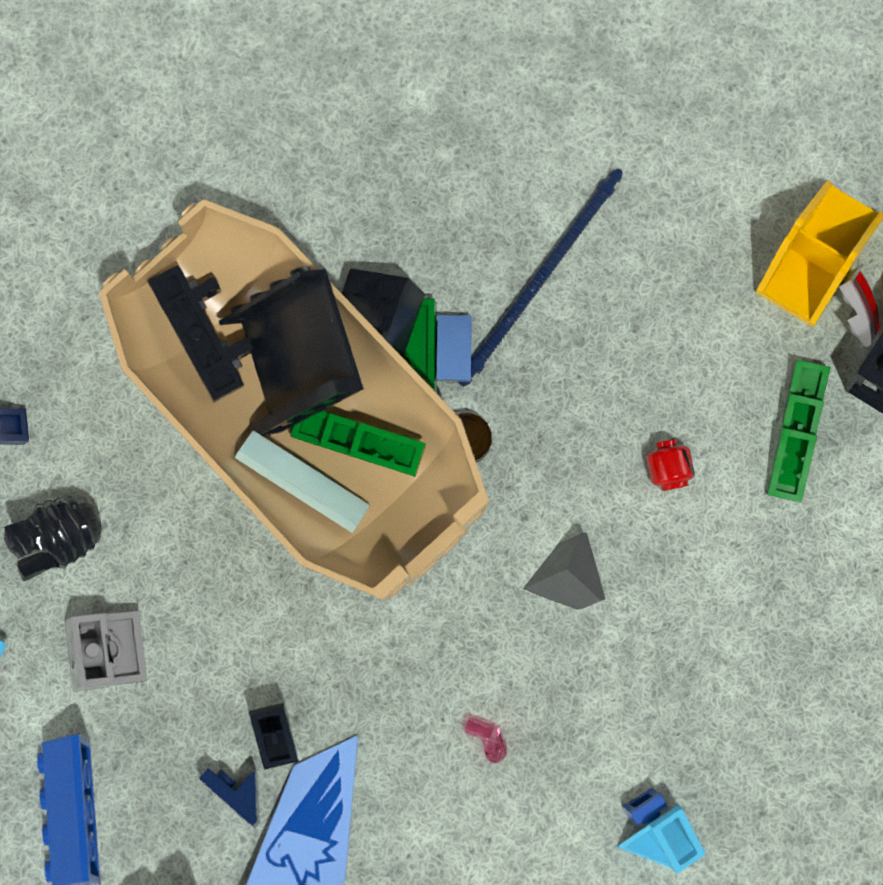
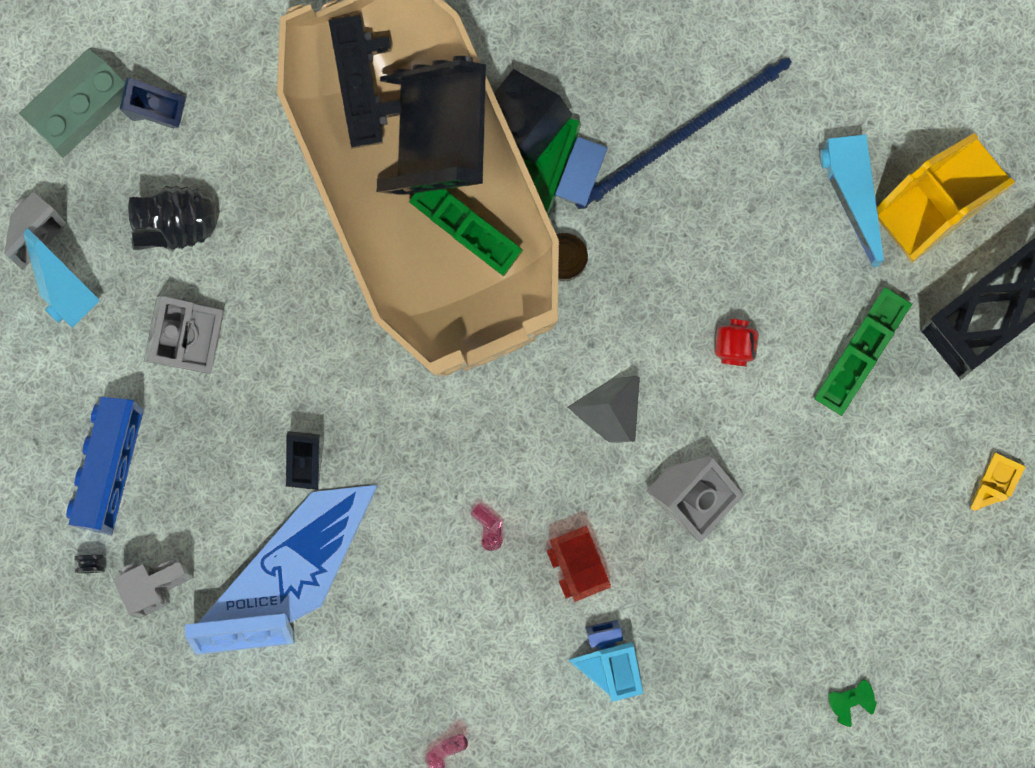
camera: 20 degrees right, 5 degrees up
(243, 800) = (257, 507): dark blue slope -> none
(302, 481) = (404, 245): light aqua tile -> none
(593, 744) = (579, 565): none -> clear red brick
(685, 632) = (696, 495): none -> light grey slope
(727, 269) = (852, 180): none -> medium azure slope
(865, 317) = (962, 248): light grey slope -> none

